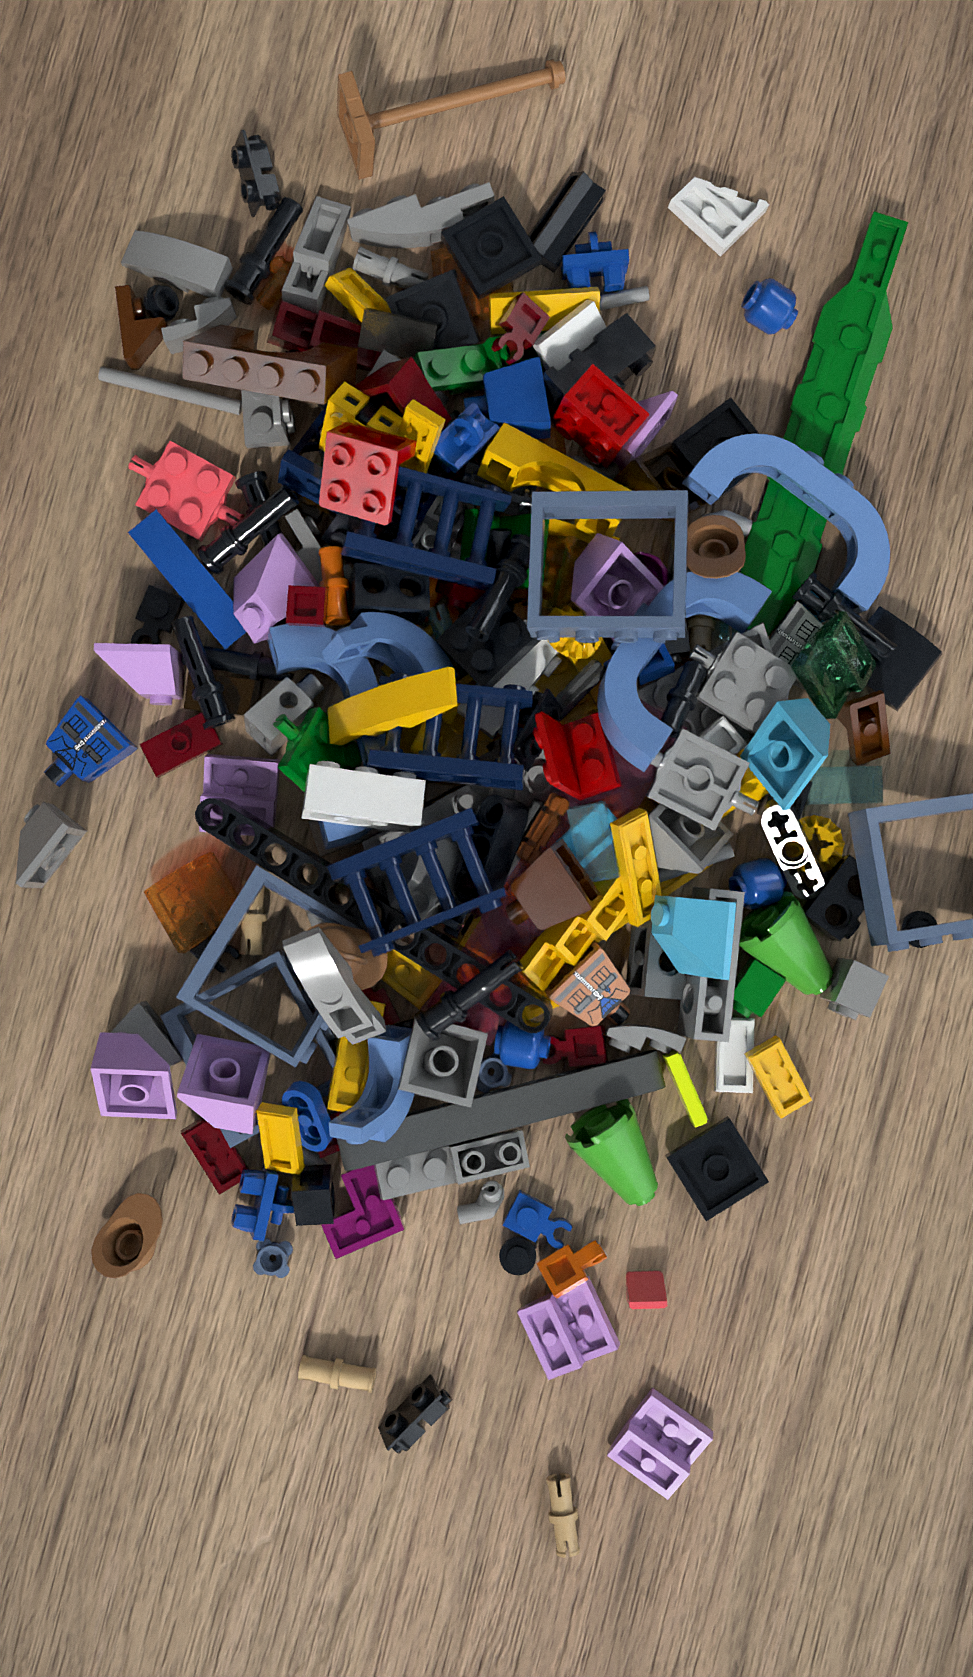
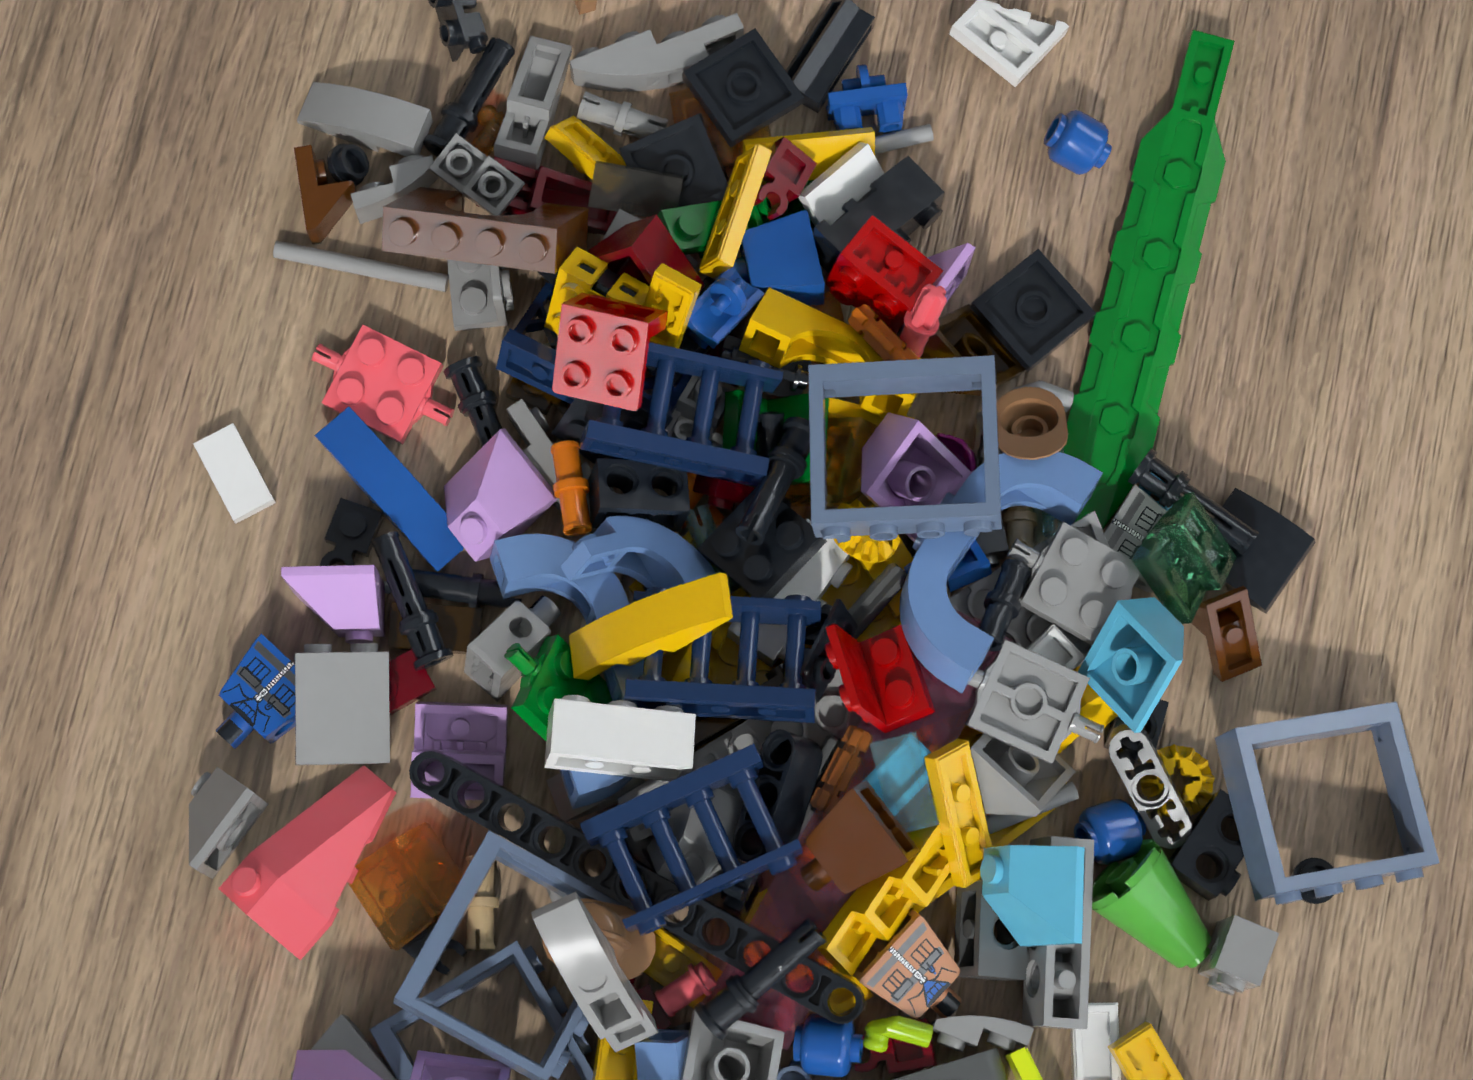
camera: 10 degrees left, 10 degrees down
(63, 560) = (234, 473): none -> white tile
(110, 886) = (303, 868): none -> coral wedge
(143, 756) = (342, 705): none -> light grey panel
(235, 538) = (446, 437): black pin -> none
(265, 316) = (476, 176): none -> light grey slope
(307, 606) = (540, 512): dark red plate -> none
(411, 994) = (686, 988): none -> coral pin
(479, 355) = (735, 211): none -> yellow tile
(576, 1033) = (897, 1028): none -> lime arm
(594, 468) = (879, 335): none -> orange axle
(629, 457) = (923, 318): none -> coral axle
(755, 989) = (1116, 963): green brick -> none
(817, 487) = (1150, 350): medium blue arch -> none
(846, 785) = (1209, 707): clear light blue tile -> none

